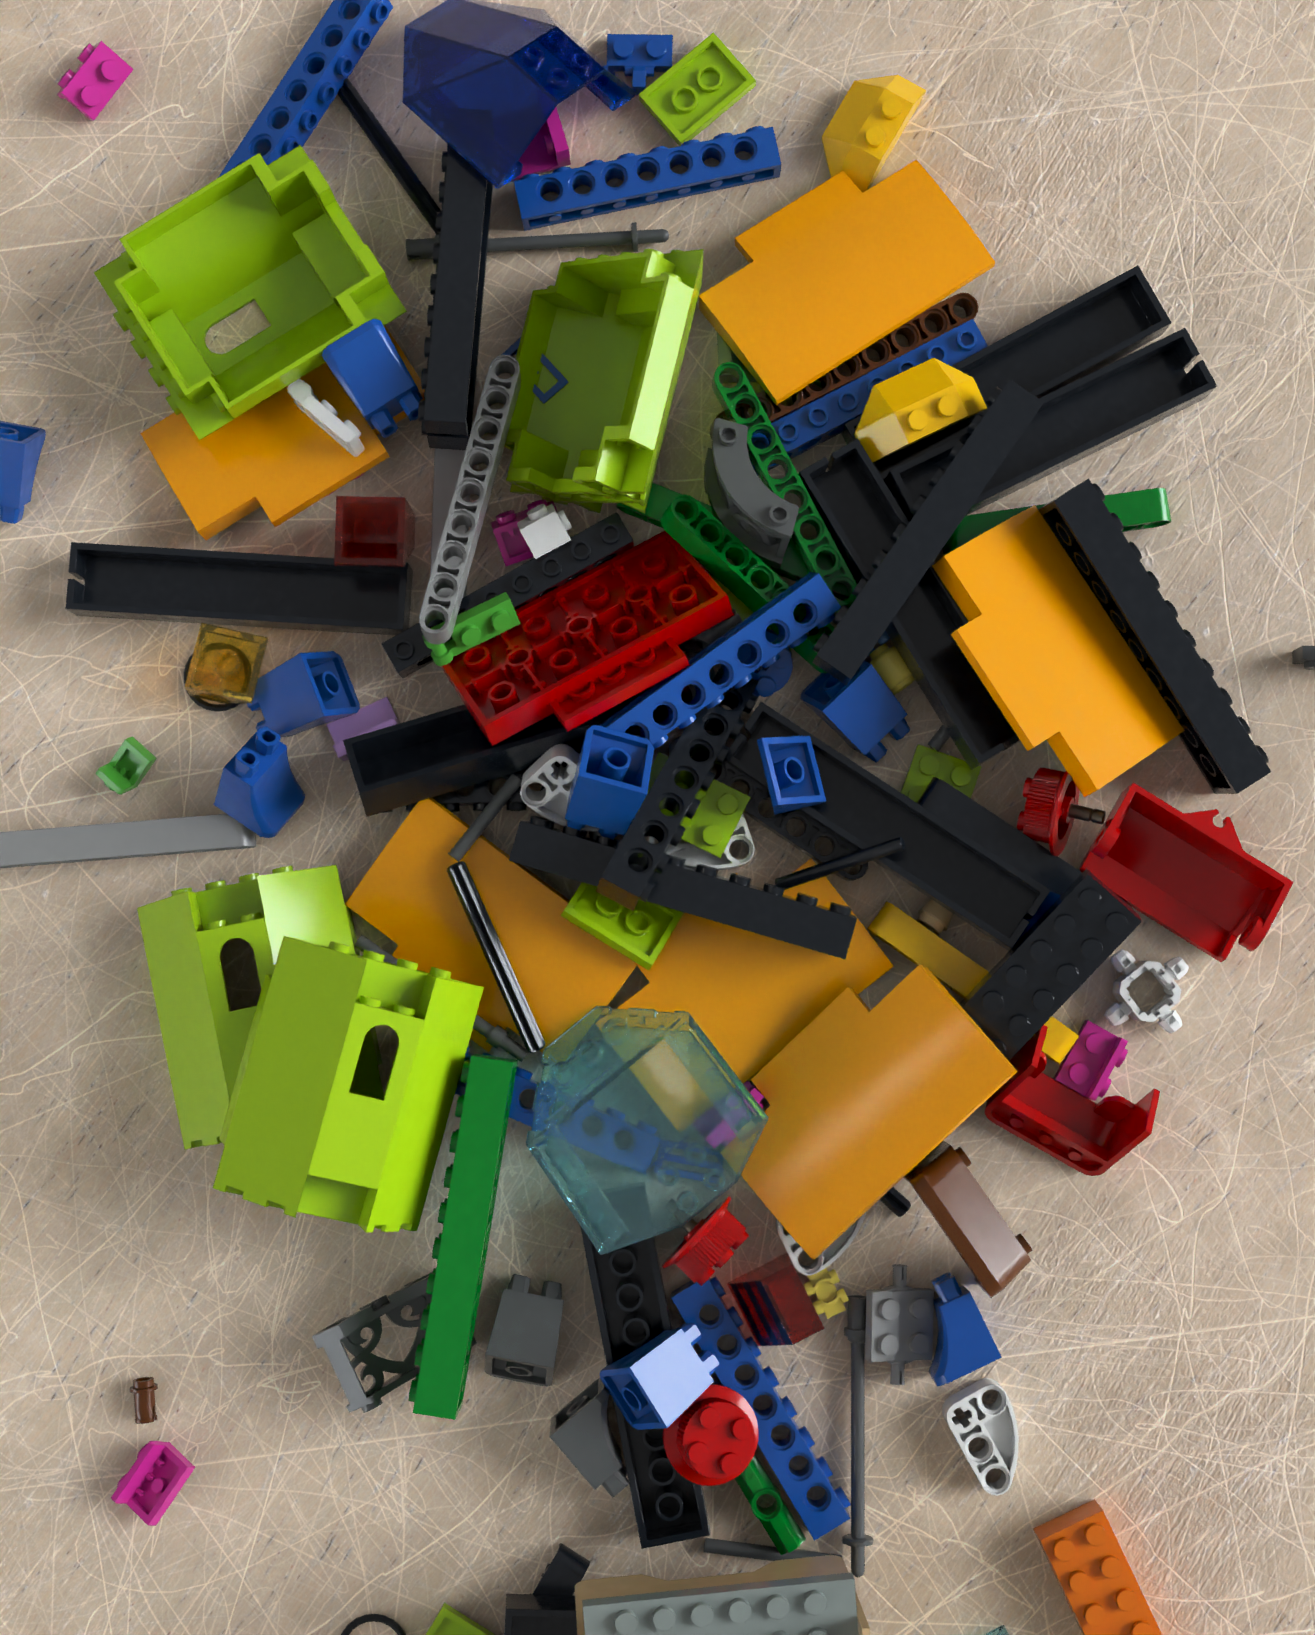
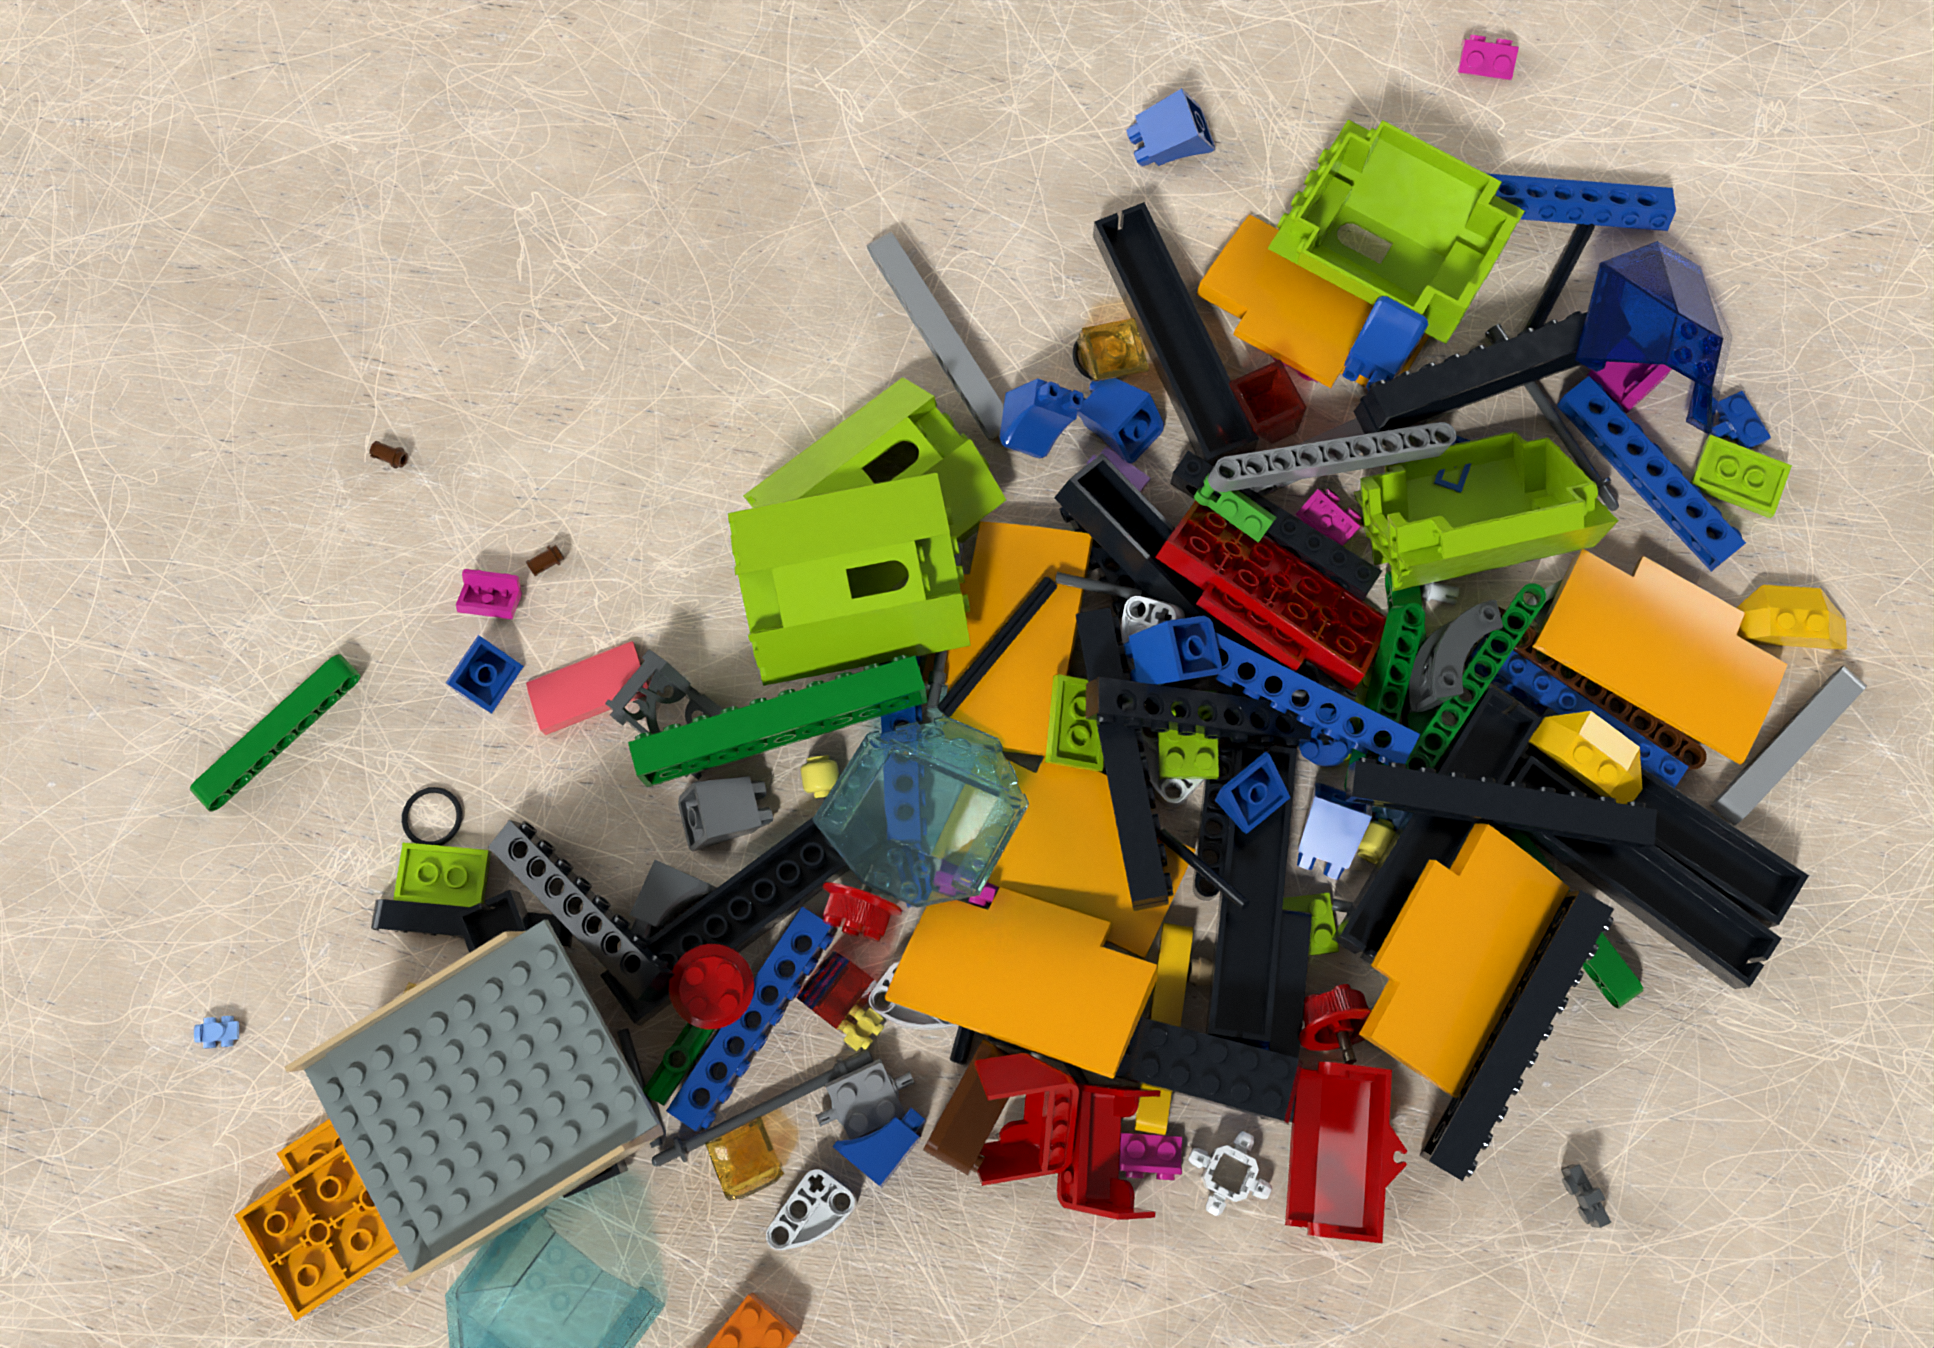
camera: 65 degrees right, 10 degrees down
(127, 767) = (1001, 322): bright green bracket -> none
(243, 1526) = (484, 674): none -> blue slope
(311, 1422) = (582, 688): none -> coral slope
(325, 417) = (1334, 326): white hinge -> none
(456, 1583) = (653, 971): none -> black brick
(539, 1211) = (819, 775): none -> light yellow head
(544, 529) = (1339, 524): white brick -> none
(660, 1378) = (738, 922): hips -> none
(667, 461) = (1439, 592): none -> white pin
(901, 1478) = (745, 1160): none -> clear yellow slope
(995, 205) = (1788, 745): none -> light grey beam
(1027, 1178) = (1045, 1136): none -> red windscreen

